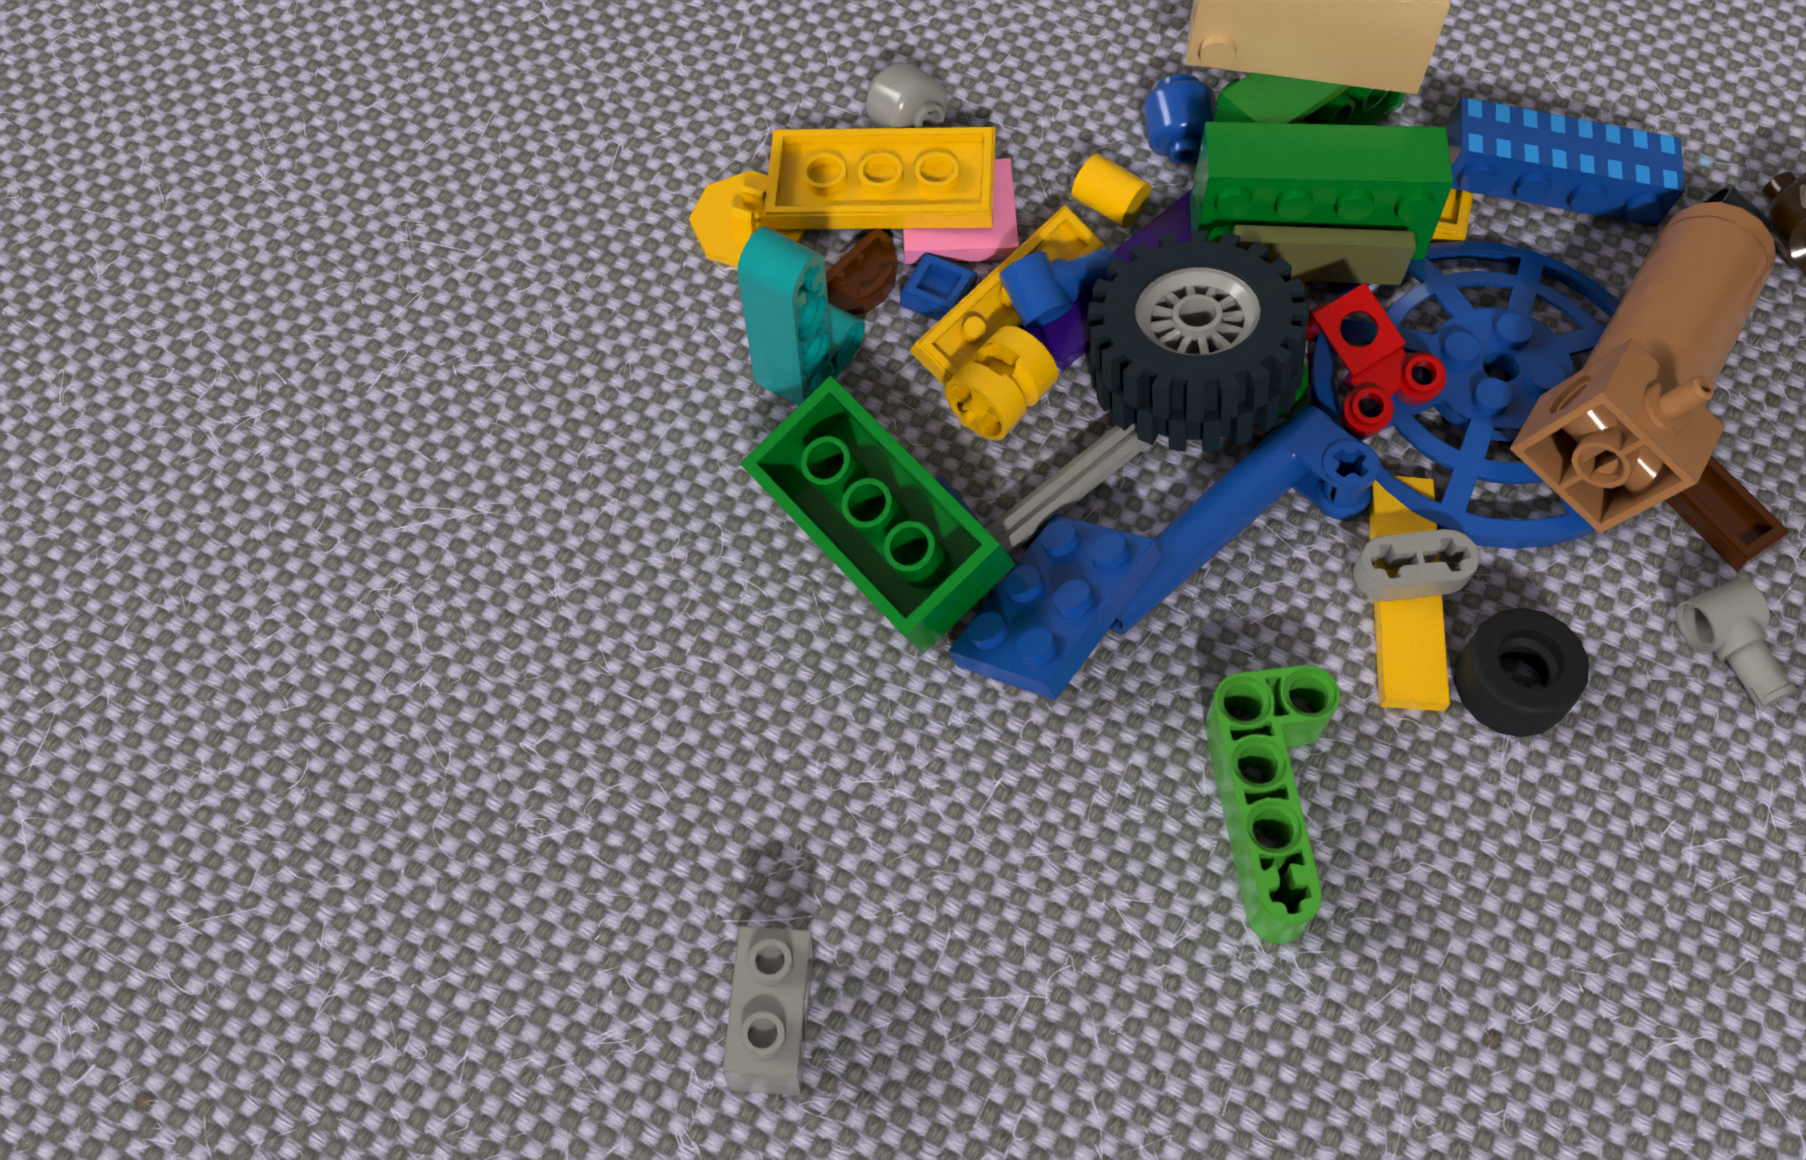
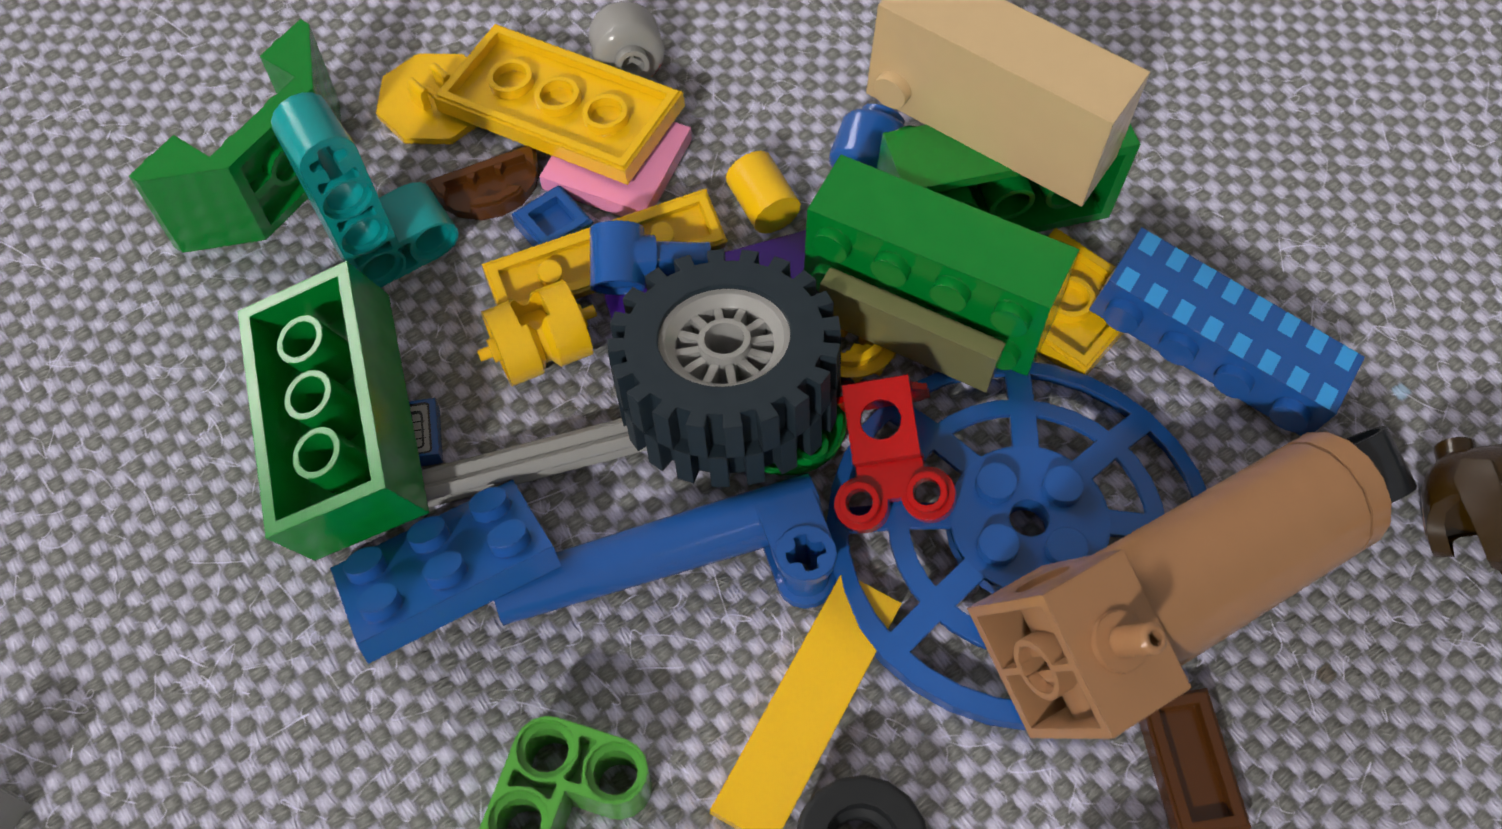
camera: 25 degrees right, 0 degrees up
(642, 374) = (246, 183): none -> green slope
(1417, 572) = (827, 669): light grey beam -> none

